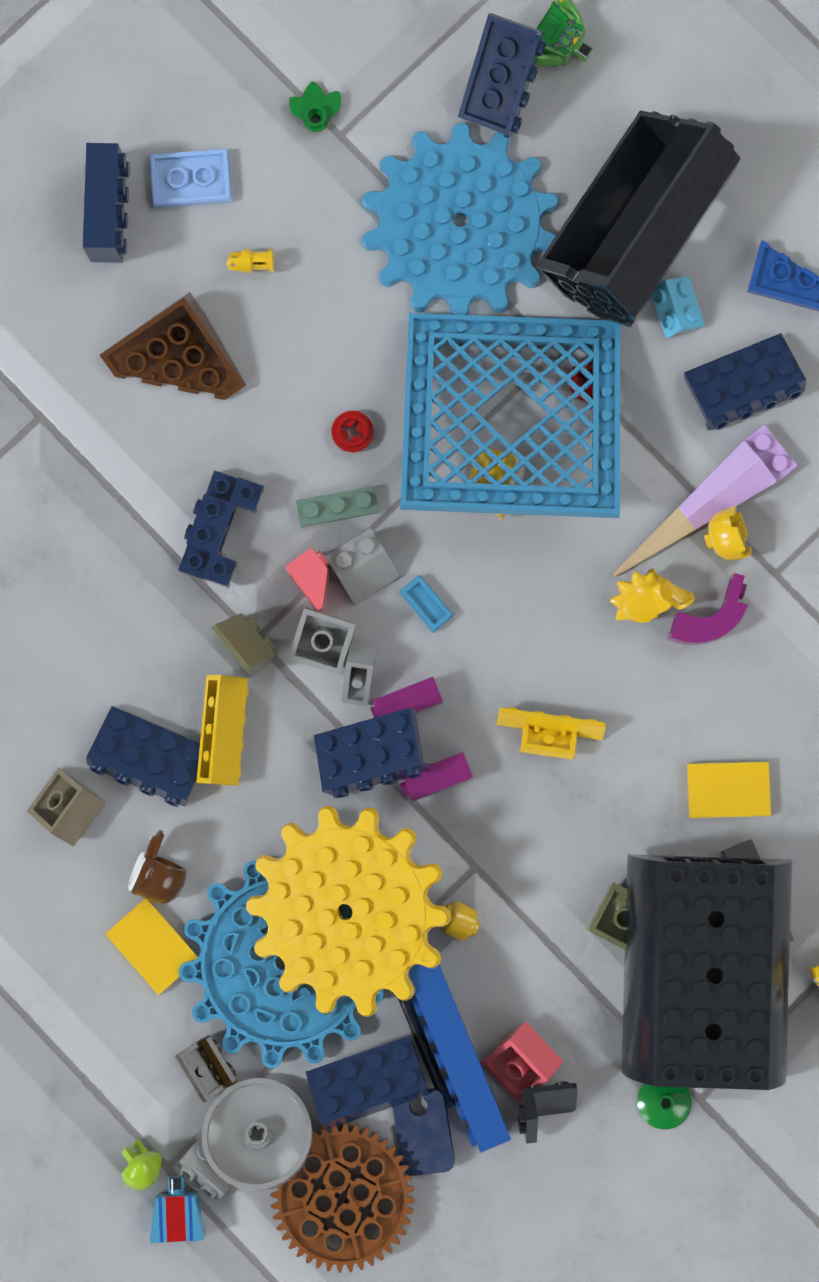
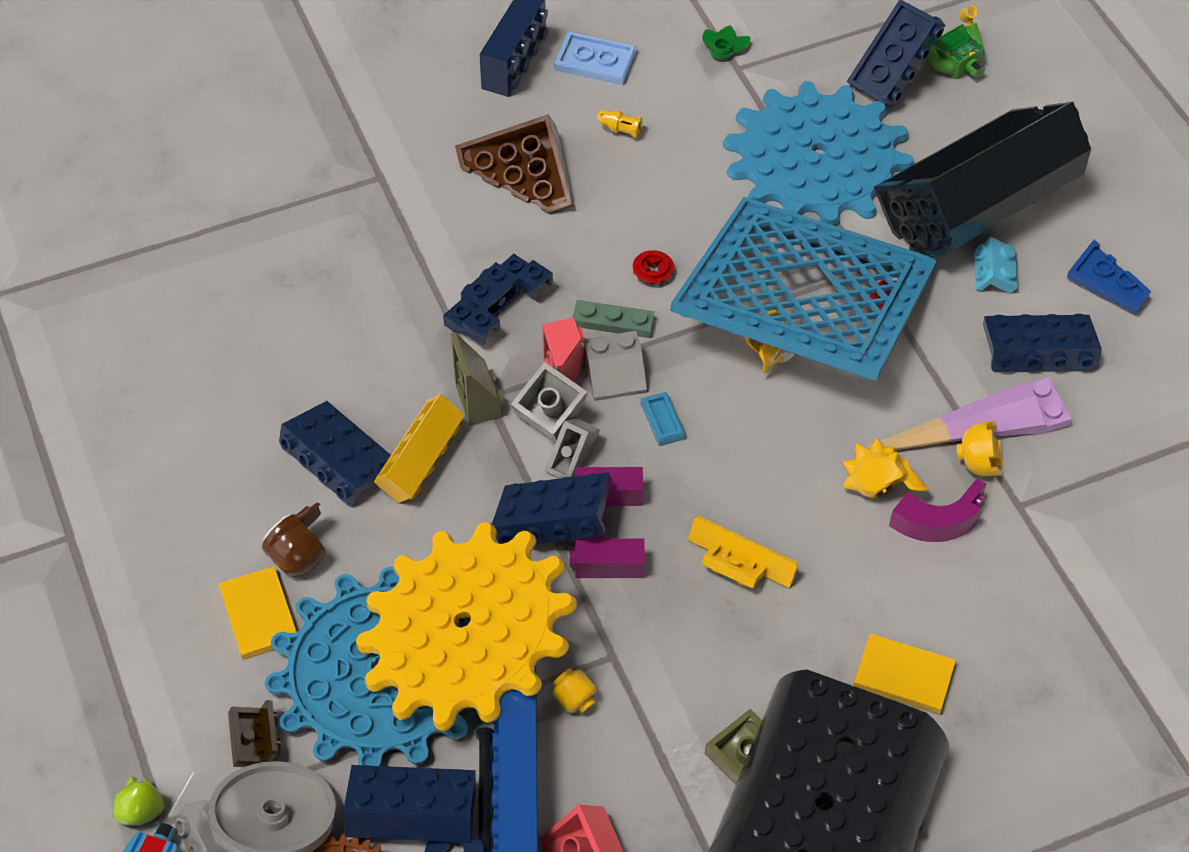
camera: 20 degrees right, 30 degrees down
(66, 807) = (242, 465): dark tan slope -> none

